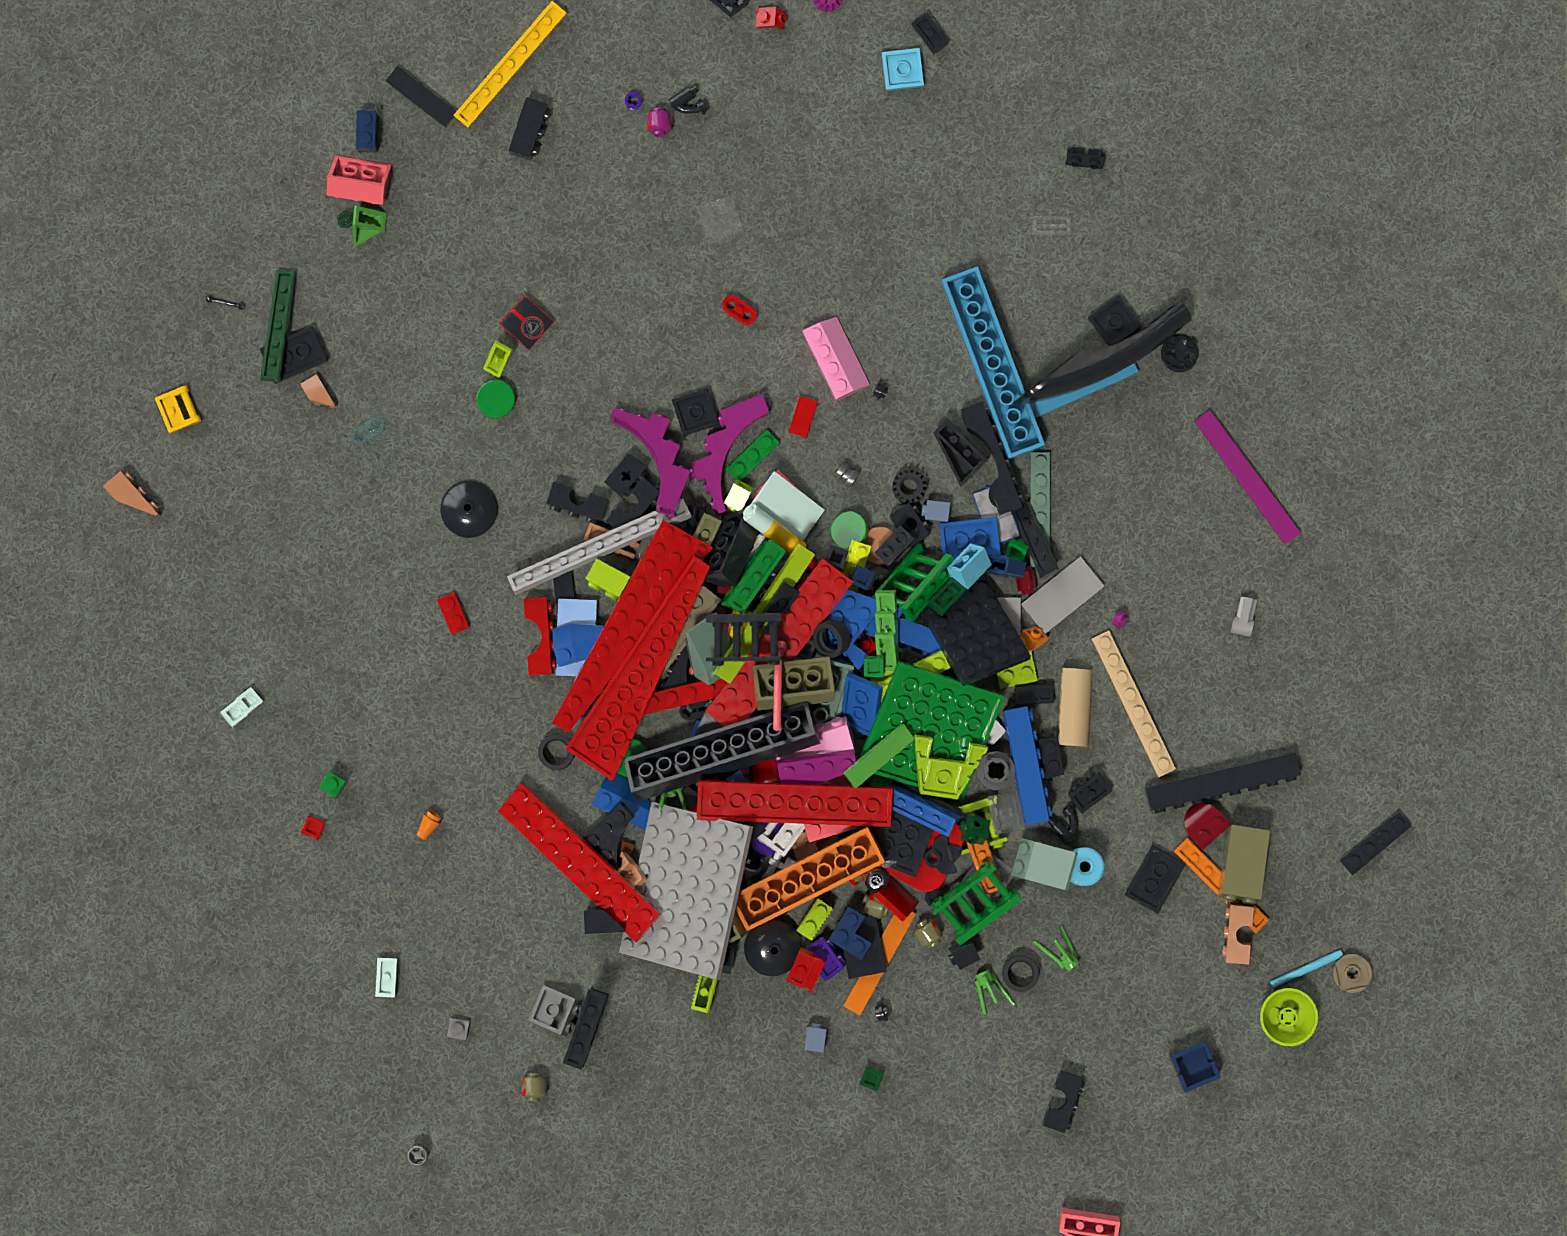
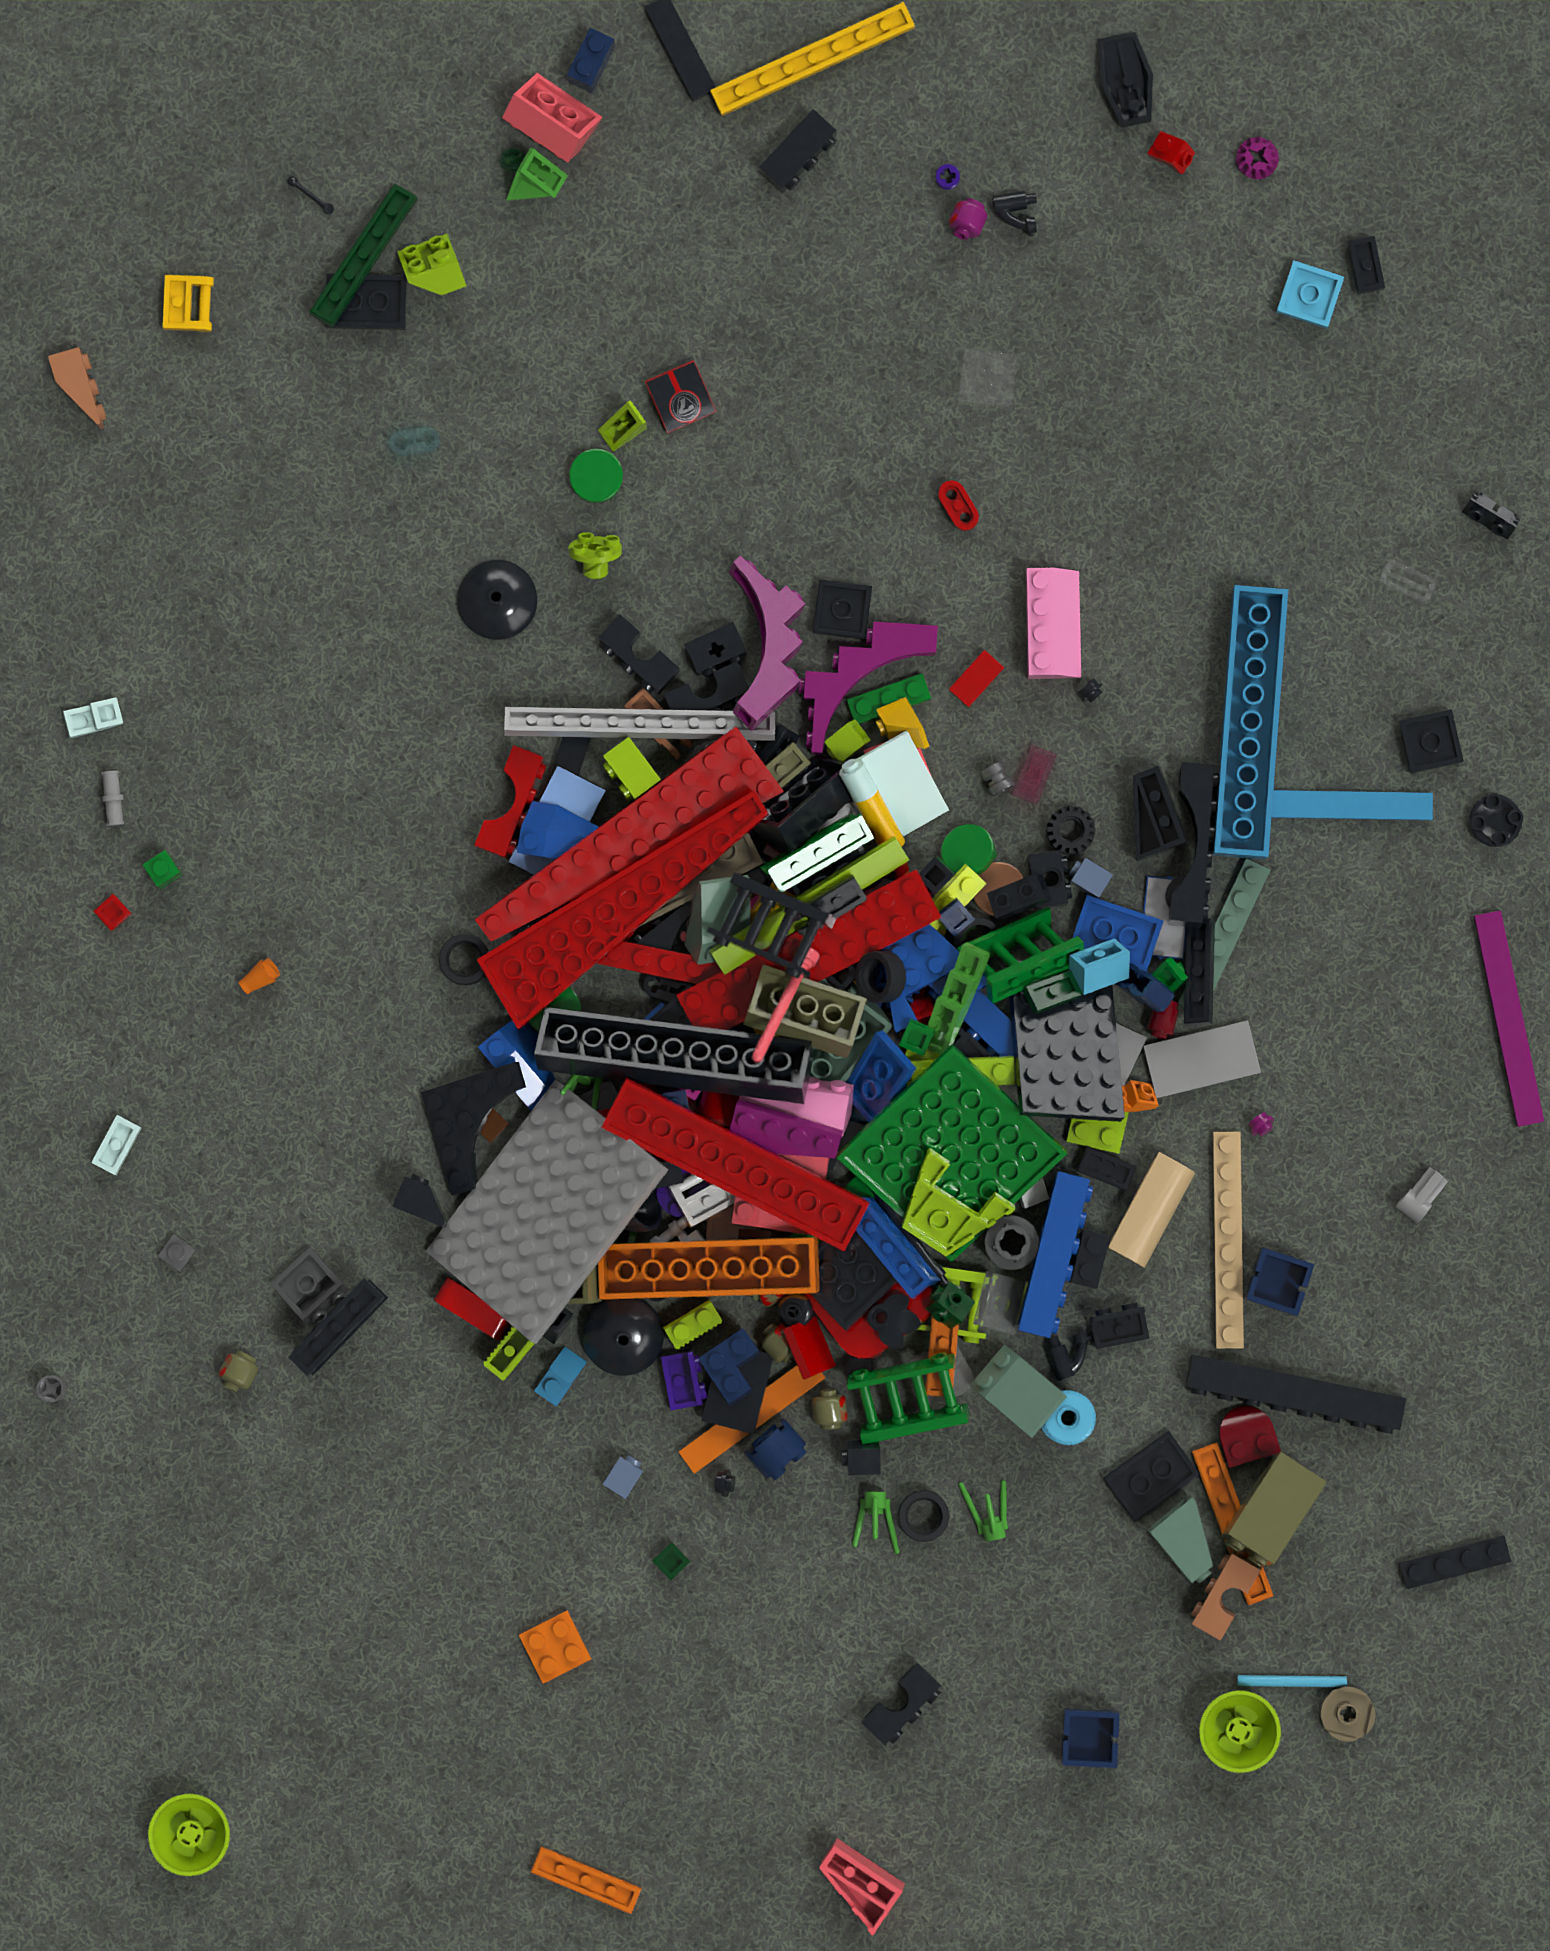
camera: 25 degrees right, 0 degrees up
(278, 753) = (112, 798): none -> light grey pin
(316, 392) = (373, 362): nougat slope -> none
(326, 311) = (432, 265): none -> lime slope
(453, 613) = (415, 723): red plate -> none
(518, 449) = (595, 553): none -> lime plate
(579, 861) = (428, 1112): red plate -> none
(631, 871) = (488, 1157): nougat slope -> none
(666, 976) = (471, 1309): none -> red beam
(744, 992) = (560, 1376): none -> dark azure slope
(765, 465) = (899, 717): none -> yellow slope
(806, 969) = (652, 1383): red plate -> none
(822, 1169) = (555, 1647): none -> orange plate
(869, 461) = (1034, 775): none -> clear pink plate
(878, 755) = (870, 1153): bright green tile -> none
(906, 975) = (776, 1449): none -> dark blue brick
(1088, 369) = (1383, 787): black slope -> none
(1178, 715) = (1279, 1281): none -> dark blue piece
(1195, 910) = (1184, 1540): none -> sand green slope

